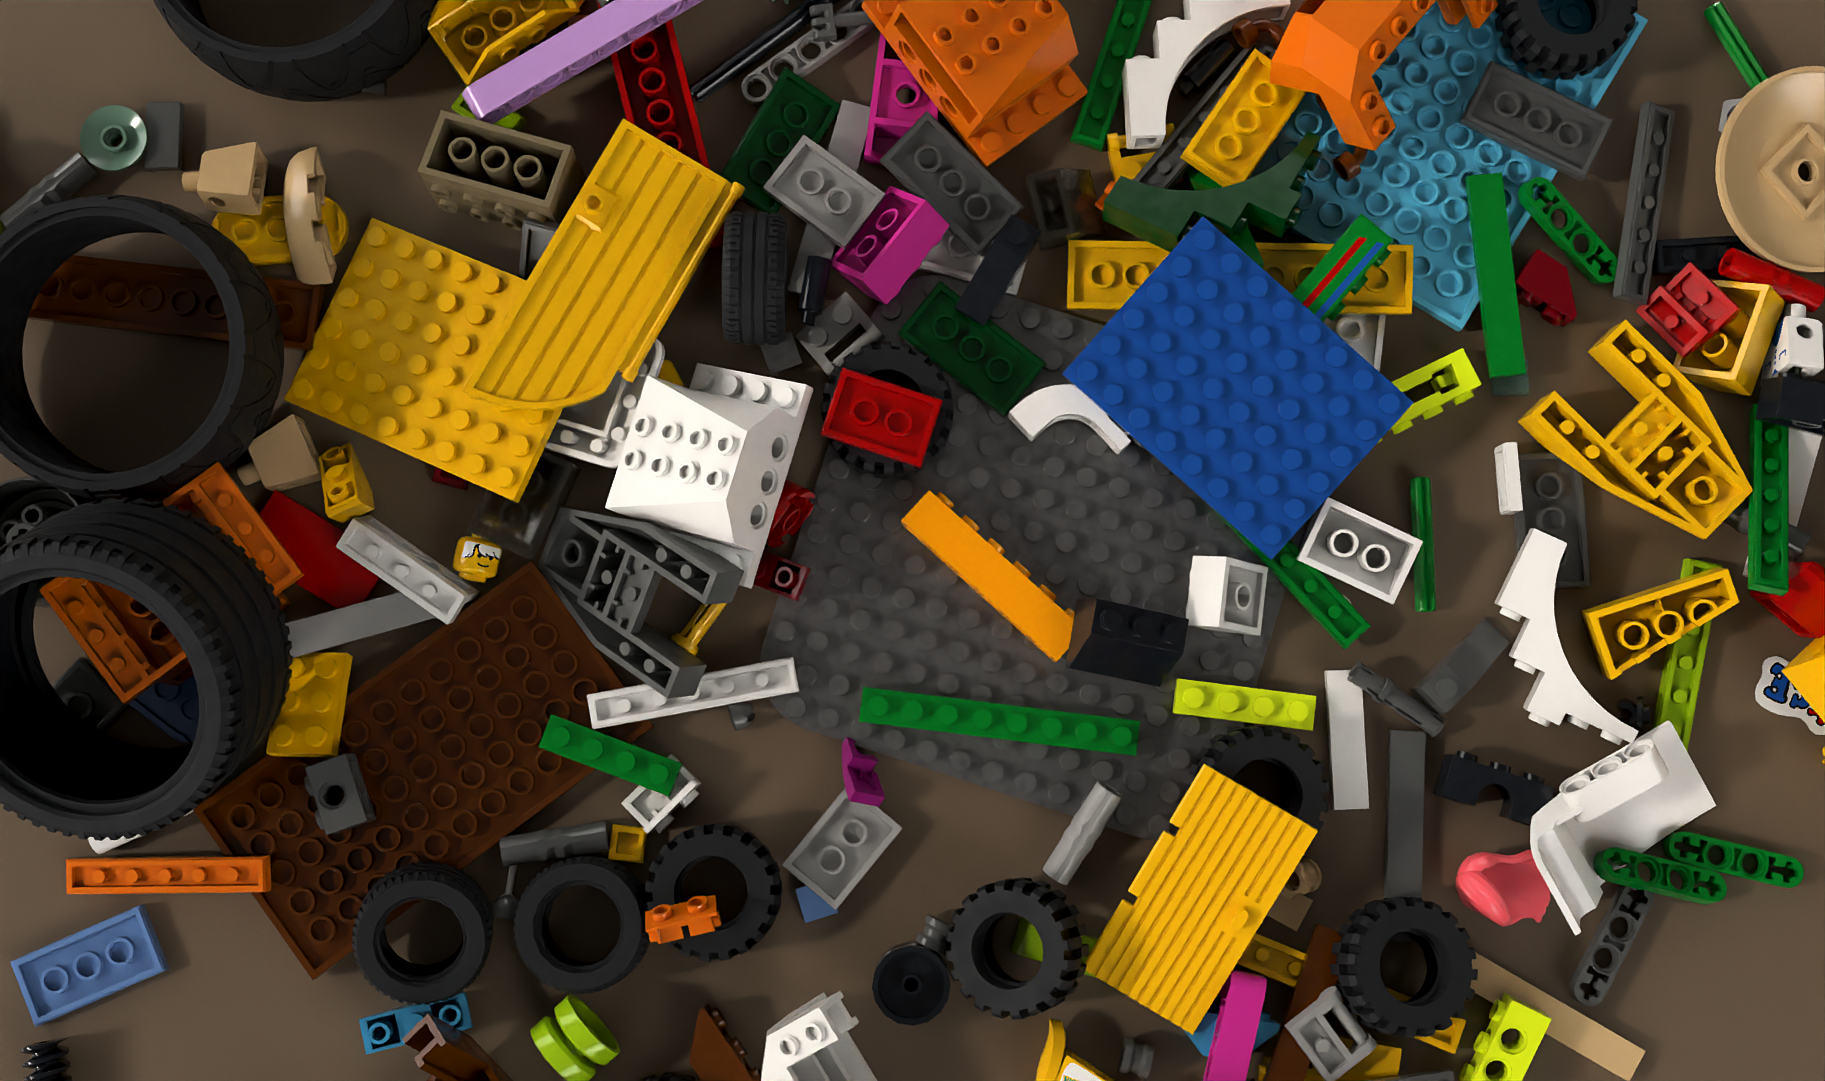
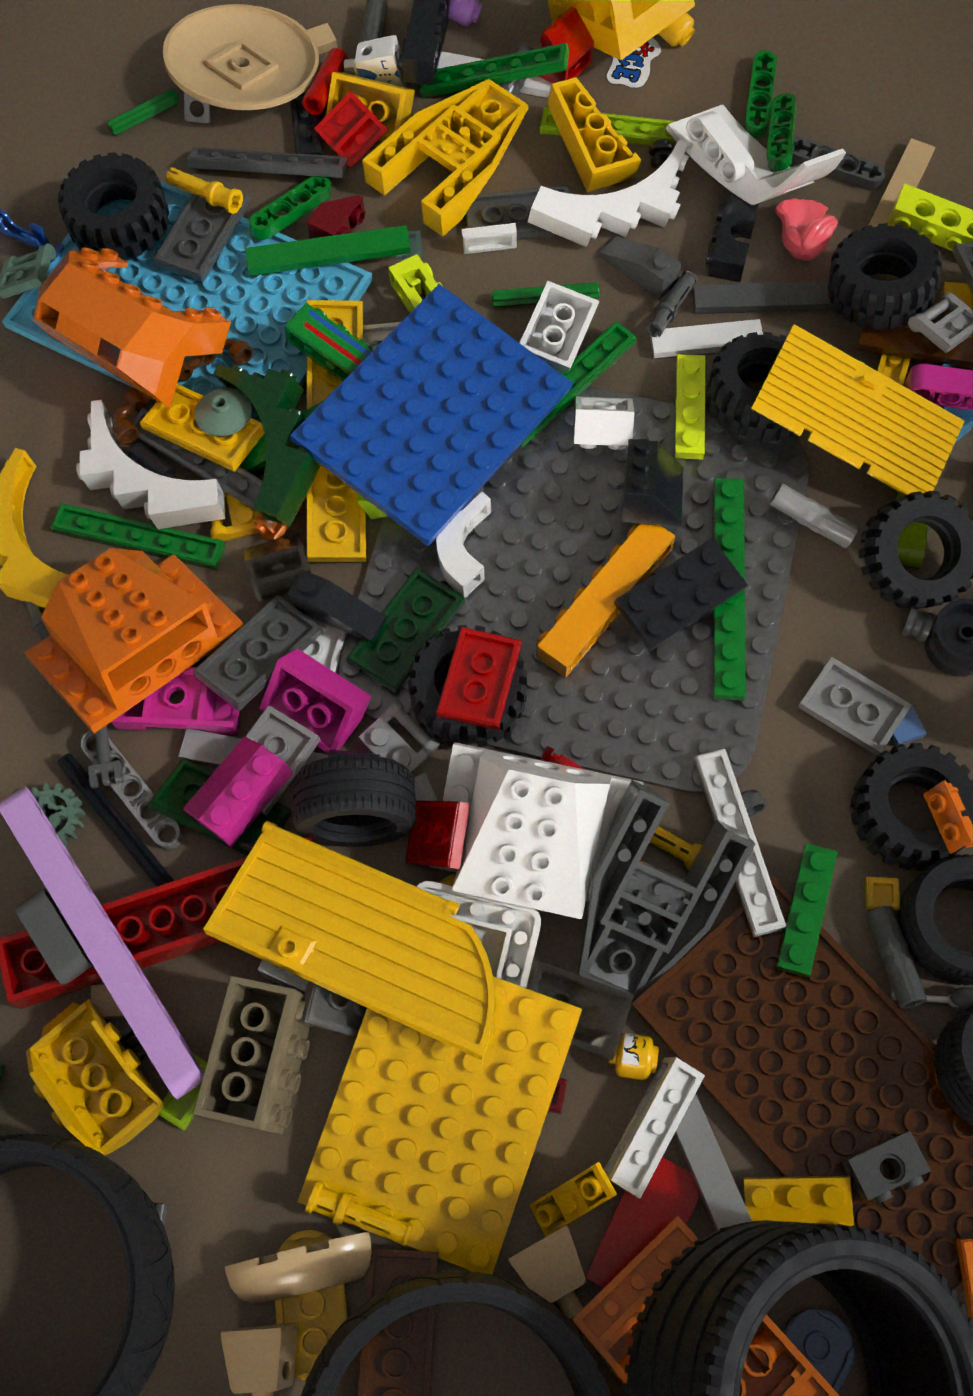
camera: 95 degrees left, 15 degrees down
(353, 257) = (343, 1209): none -> yellow pin
(655, 809) = (850, 866): white bracket -> none
(717, 366) = (438, 834): none -> red tile
(781, 576) = (628, 758): dark red slope -> none
(783, 157) = (238, 790): none -> dark pink slope
(859, 777) = (791, 696): magenta slope -> none
(981, 659) = (680, 594): none -> black plate
(1245, 150) = (223, 412): none -> sand green dish
(1582, 132) = (213, 192): none -> yellow pin

